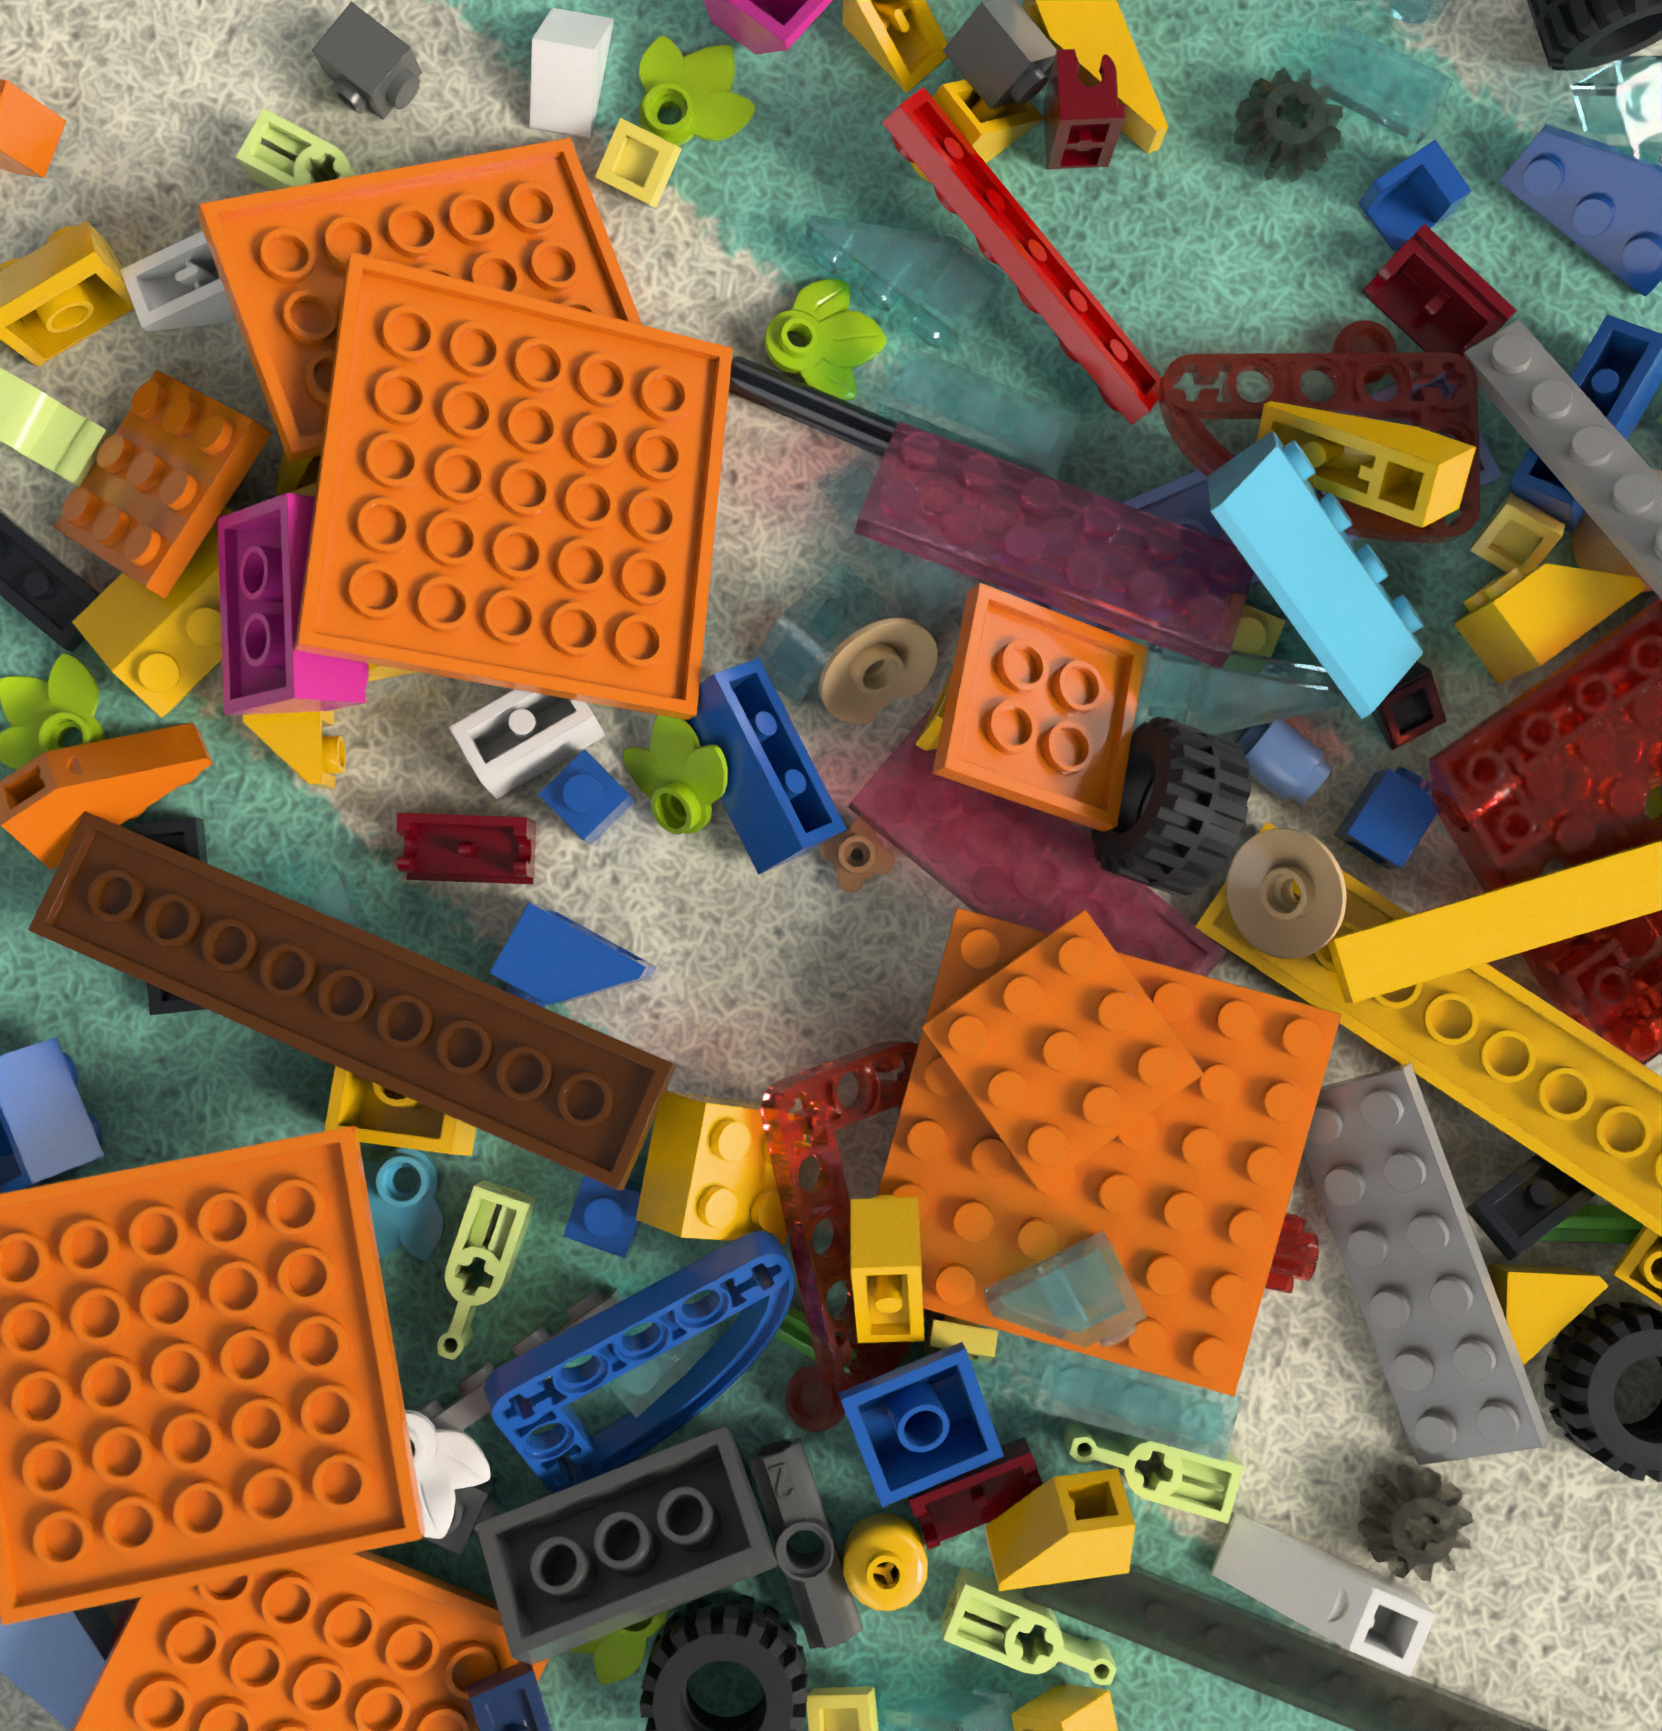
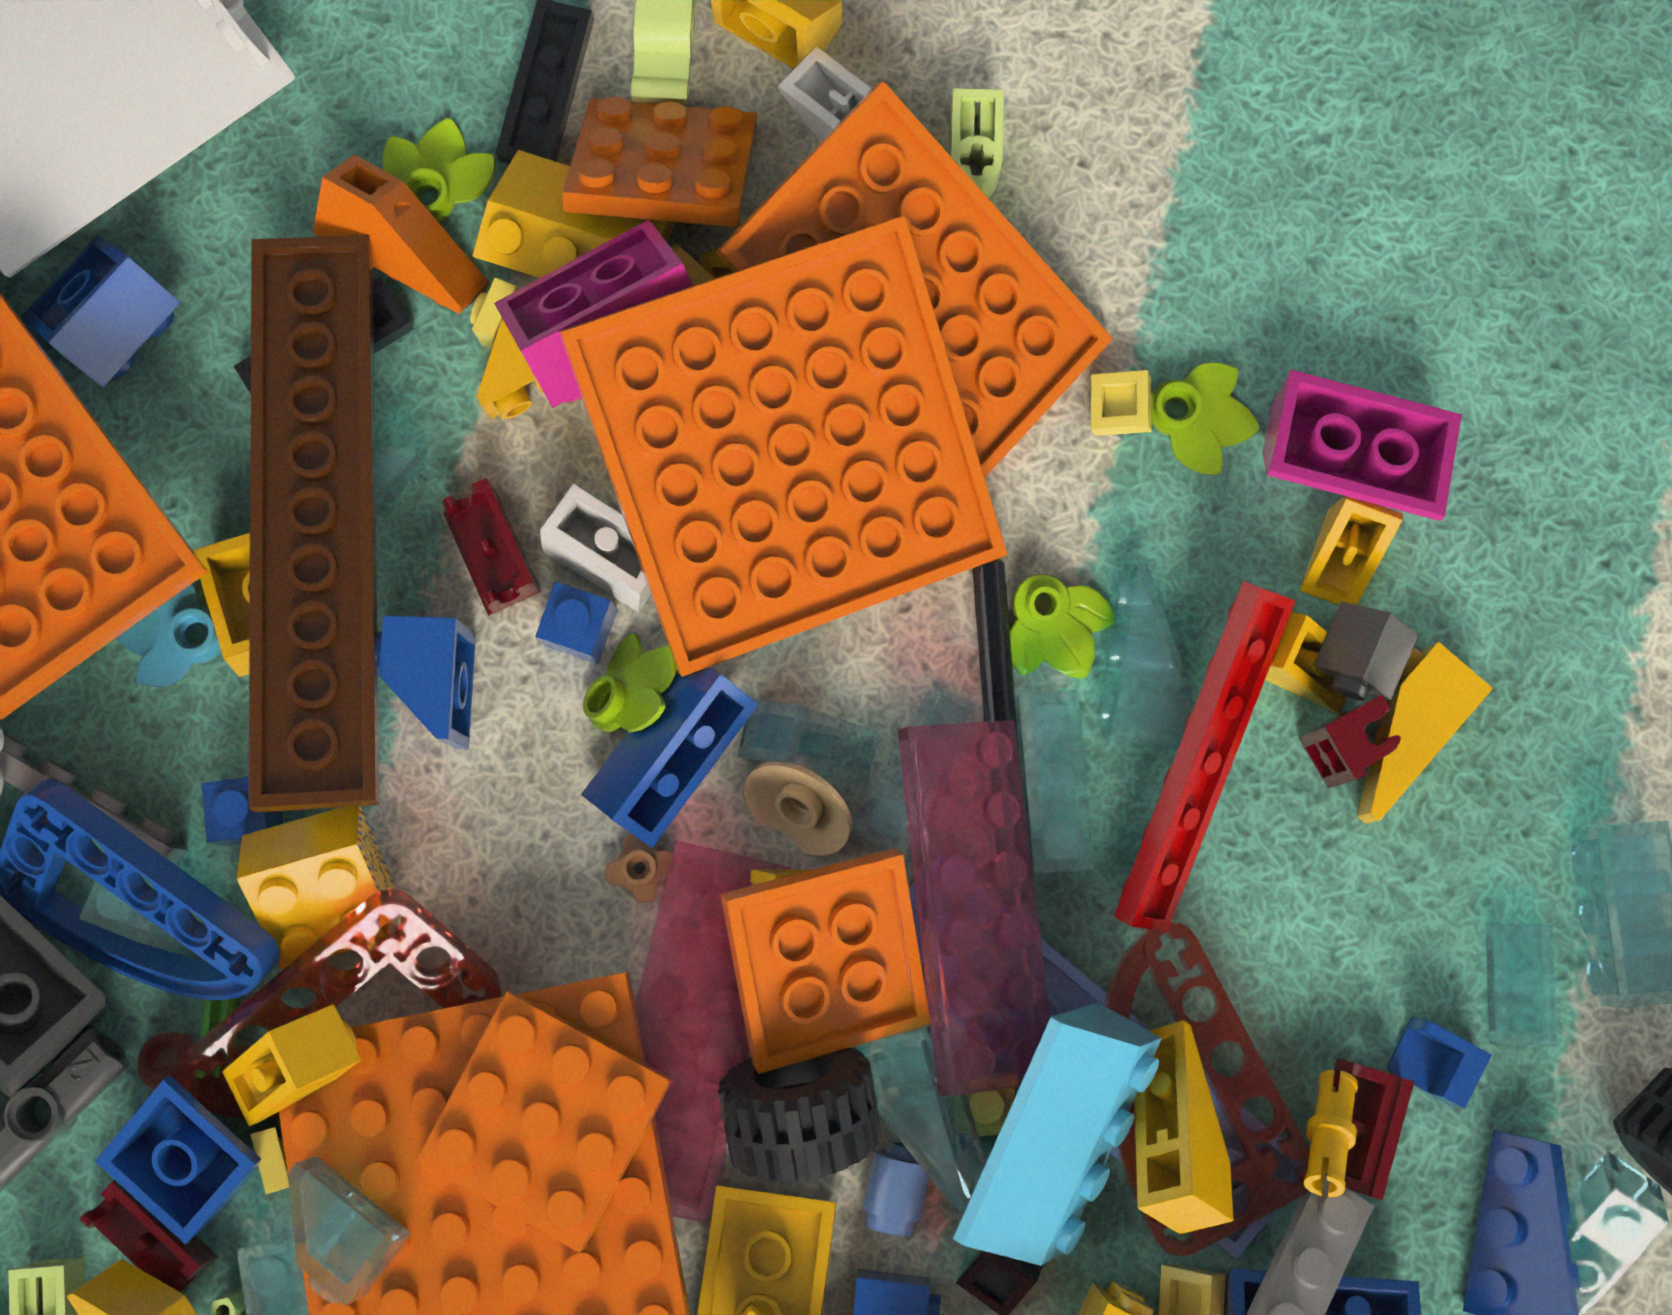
camera: 65 degrees right, 5 degrees down
(228, 731) = (485, 314): none -> light yellow plate
(367, 64) = (1086, 152): dark grey brick -> none
(475, 1242) = (181, 722): yellowish green piece -> none
(568, 72) = (1168, 310): white slope -> none
(887, 1540) = (54, 1187): yellow head -> none
(1263, 897) = (761, 1235): tan dish -> none
(1274, 139) = (1420, 919): clear smoke gear -> none
(1365, 337) = (1292, 1081): clear red plate -> none
(1434, 324) = (1331, 1133): none -> yellow pin

